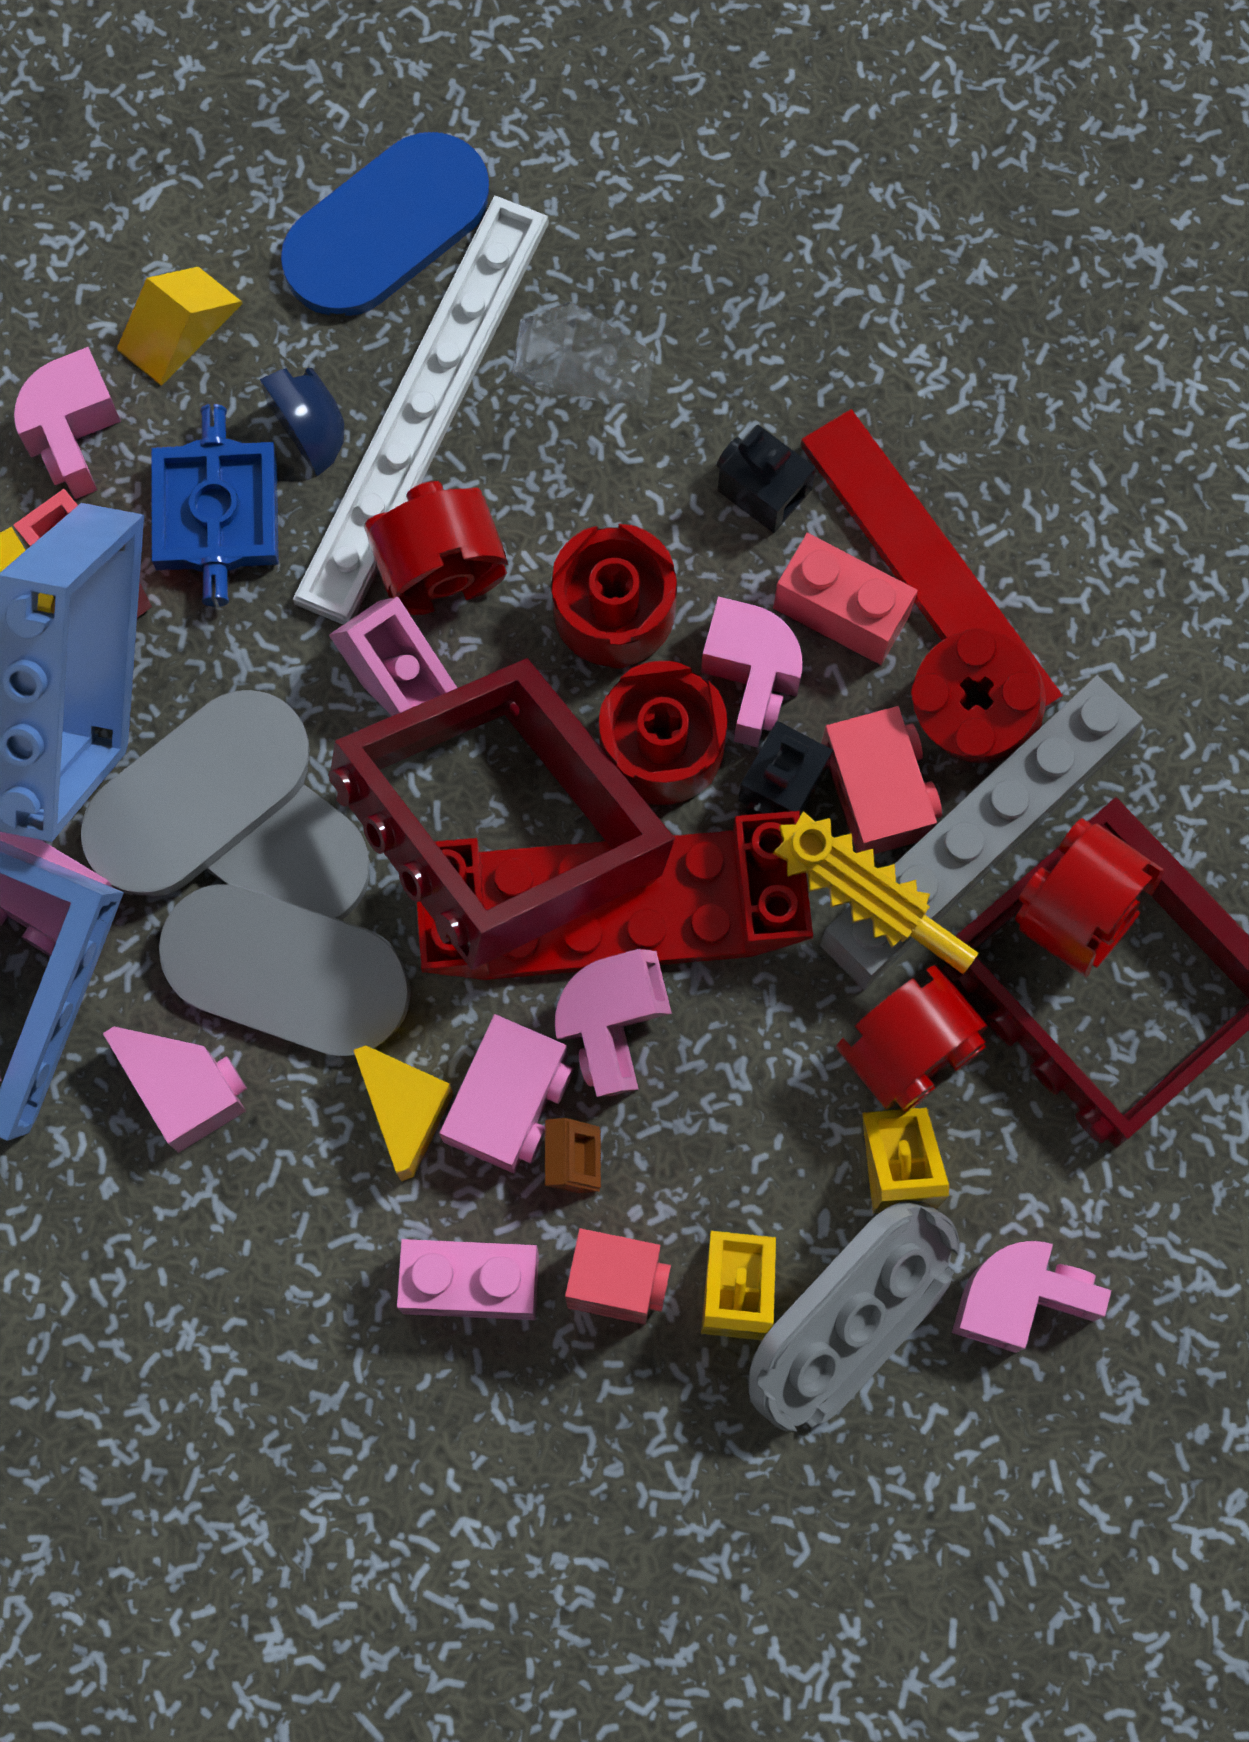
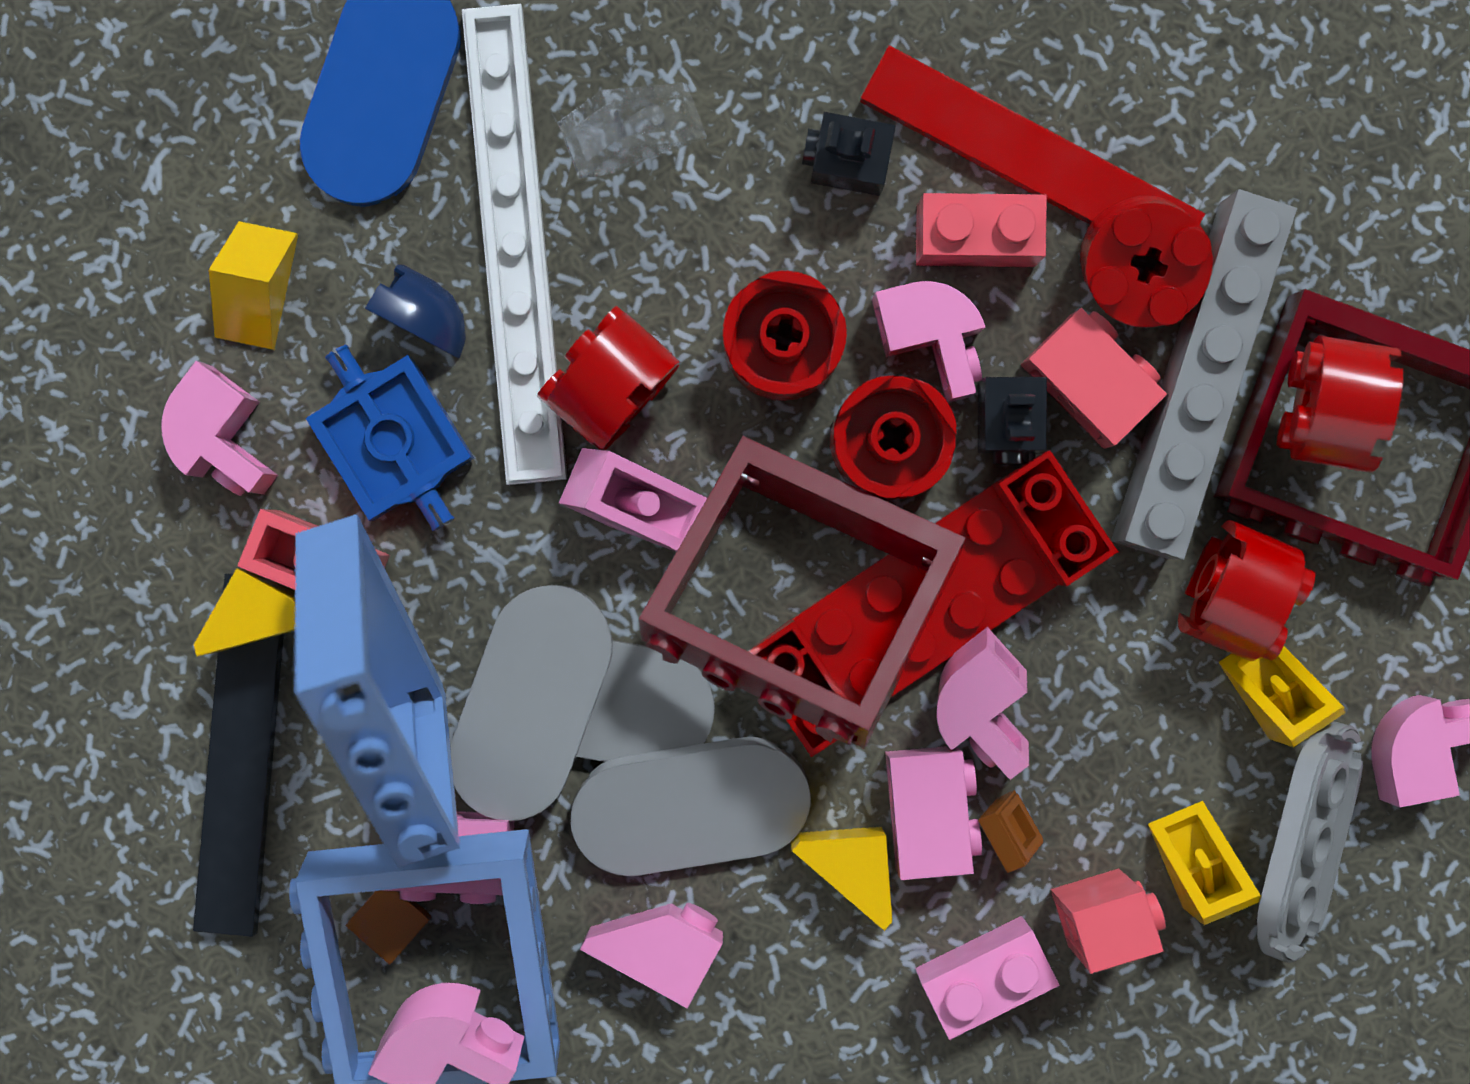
camera: 25 degrees left, 15 degrees up
(872, 892) = (1156, 495): yellow piece -> none

